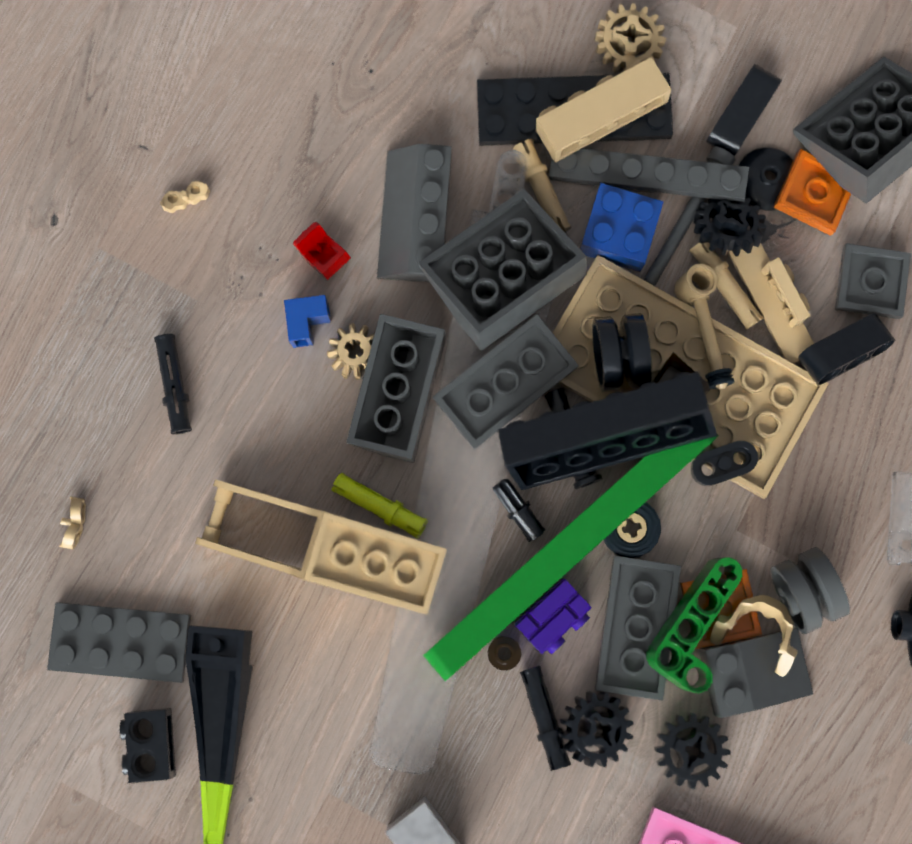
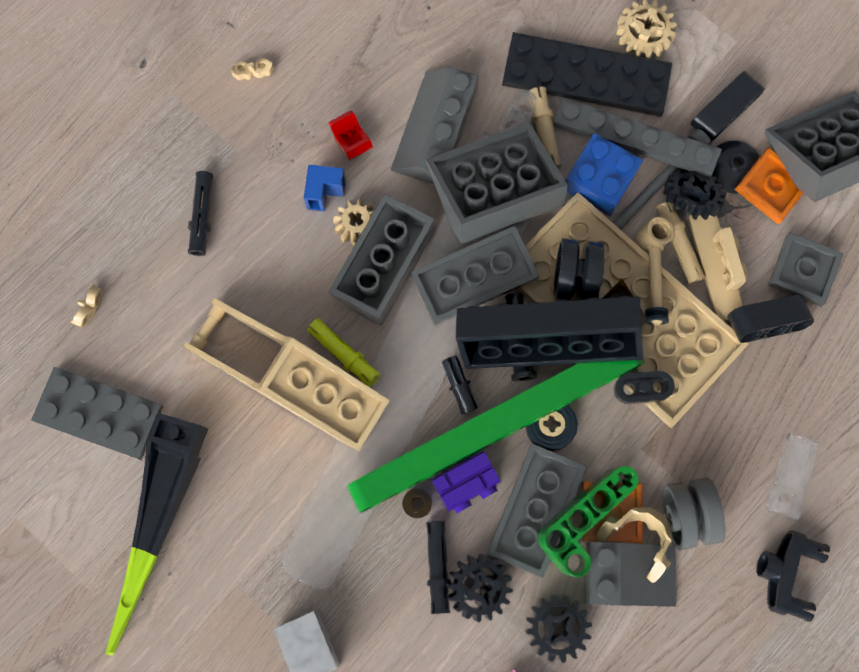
camera: 15 degrees right, 5 degrees down
(158, 745) = (105, 506): black brick -> none
(602, 109) = (610, 75): tan brick -> none

